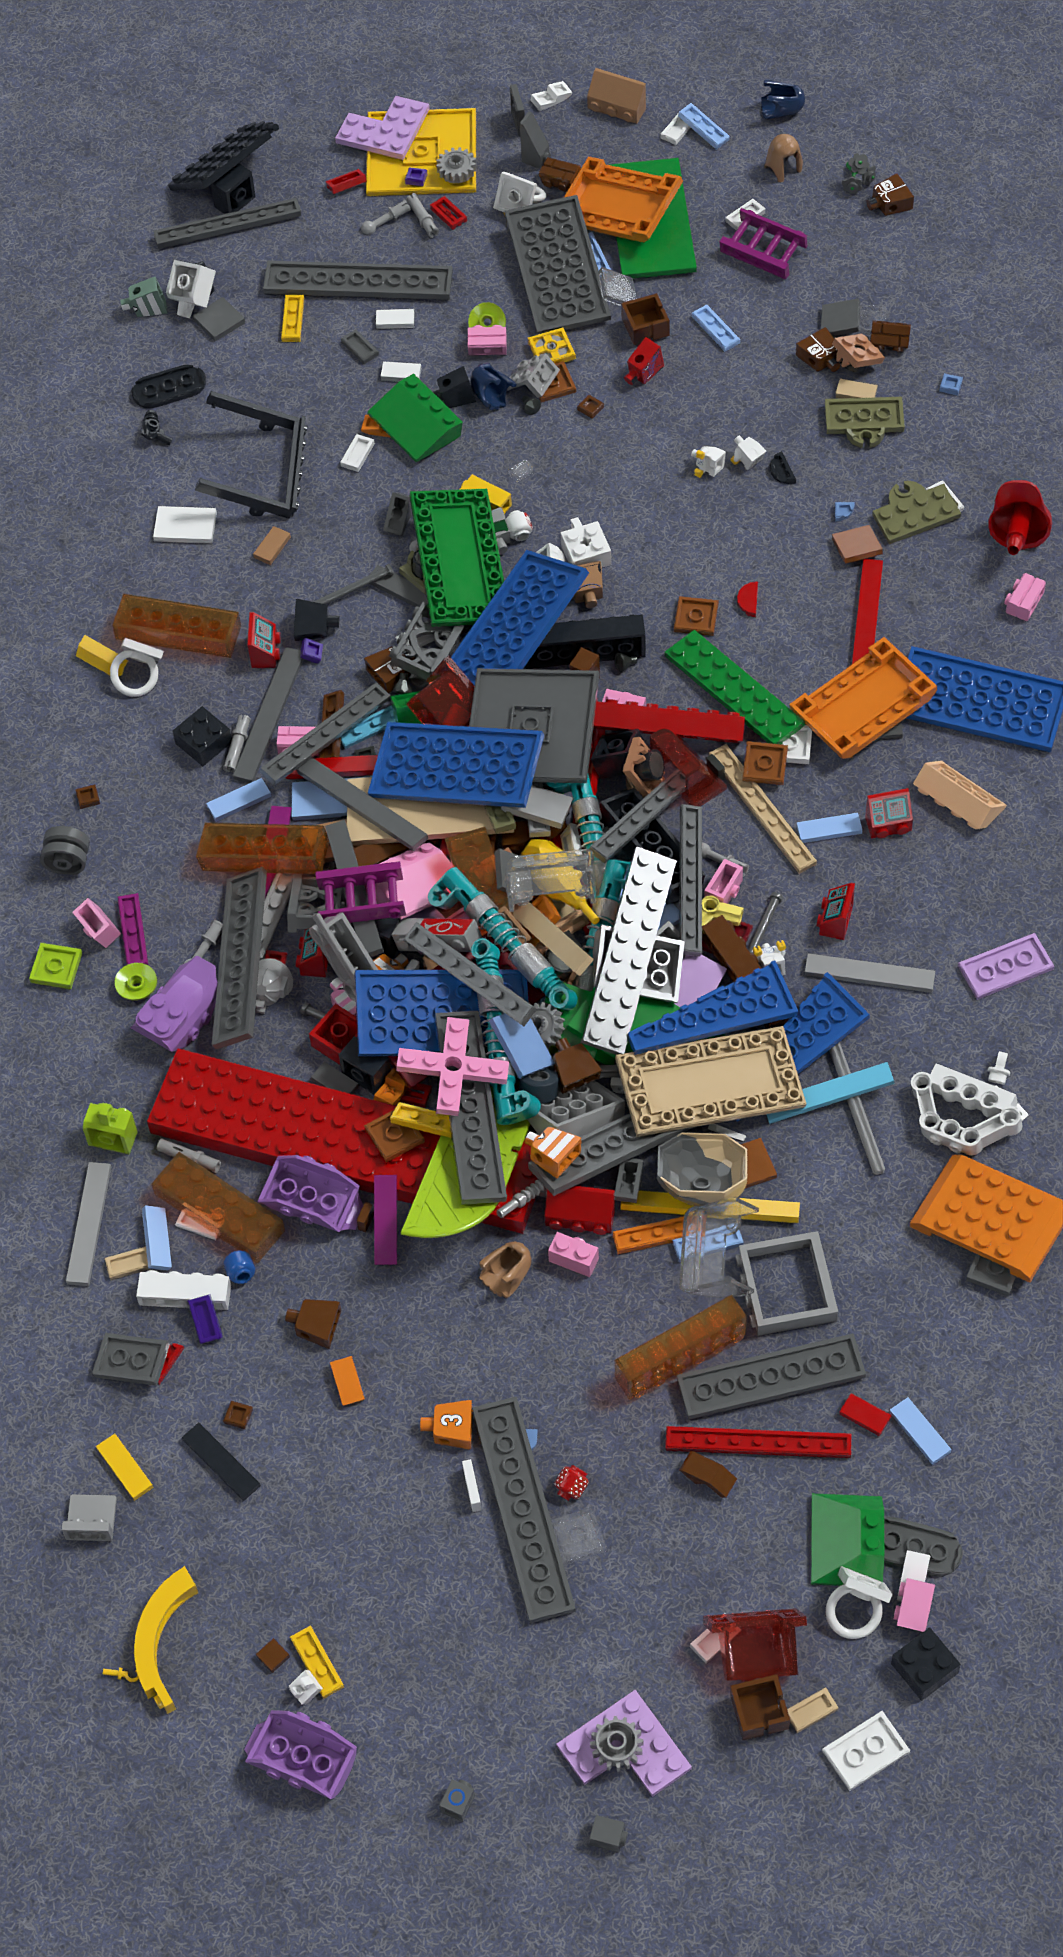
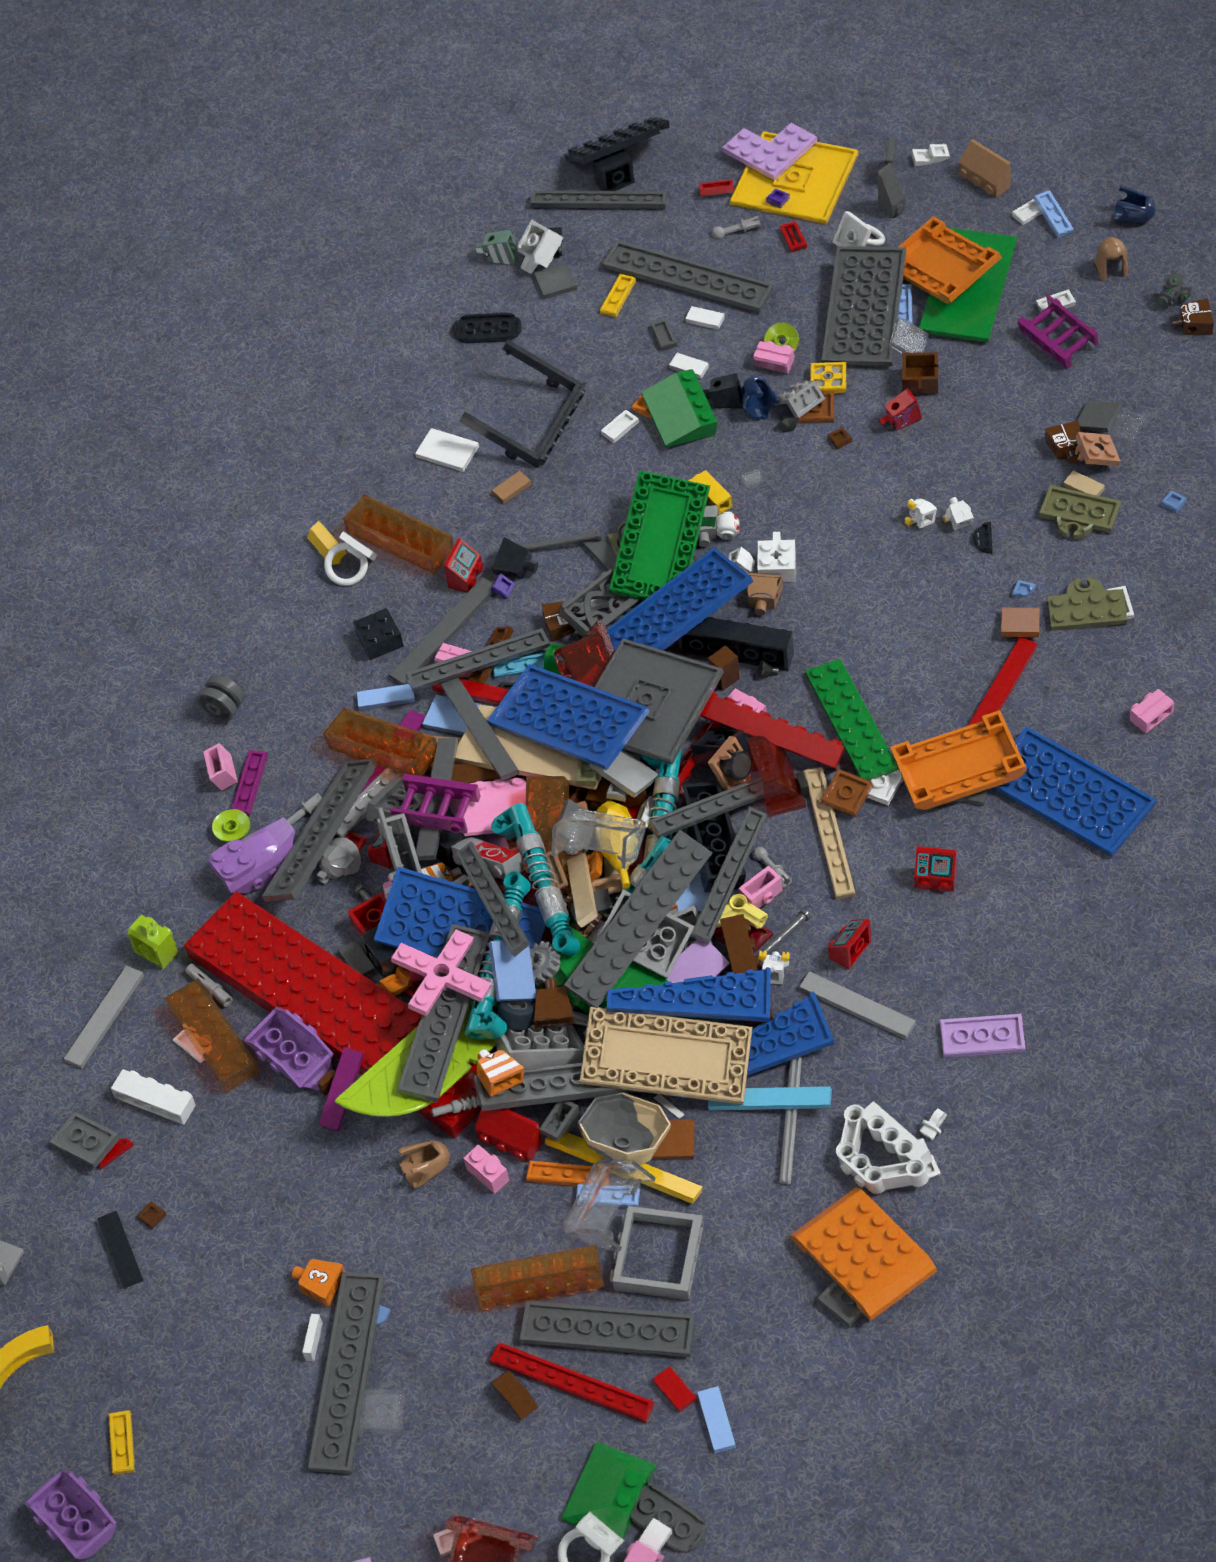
camera: 25 degrees right, 5 degrees down
(55, 966) = (173, 793): lime plate -> none
(87, 796) = (263, 658): reddish brown tile -> none
(124, 1467) = (41, 1228): yellow tile -> none
(127, 1263) = (121, 1059): tan tile -> none
(151, 428) = (455, 360): black piece -> none
(156, 1238) = (151, 1045): light blue tile -> none
(205, 1318) = (158, 1125): dark purple tile -> none
(239, 735) = (409, 643): light grey pin -> none
(239, 1267) = (206, 1091): blue head -> none
(272, 1655) = (88, 1424): reddish brown tile -> none
(305, 1687) = (101, 1460): white tile -> none
(316, 1320) = (249, 1156): reddish brown torso -> none
(347, 1380) = (251, 1215): orange slope -> none
(391, 1138) = (378, 1017): dark orange tile -> none
(398, 513) = (625, 488): dark grey arch -> none
(403, 685) = (565, 638): pearl dark grey rock -> none
(421, 1119) = (398, 1009): yellow tile -> none
(425, 219) = (769, 237): light grey pin -> none
(456, 165) = (816, 196): light grey gear -> none
(558, 174) = (901, 224): reddish brown brick -> none
(571, 1482) = (396, 1363): red head -> none
(696, 615) = (848, 647): dark orange tile -> none
(715, 328) = (983, 397): light blue tile -> none
(748, 598) = (901, 643): red tile -> none
(829, 828) = (880, 867): light blue tile -> none
(890, 334) = (1135, 442): reddish brown brick -> none
(958, 794) = (1009, 870): light nougat slope -> none
(1019, 517) = (1173, 637): red piece -> none

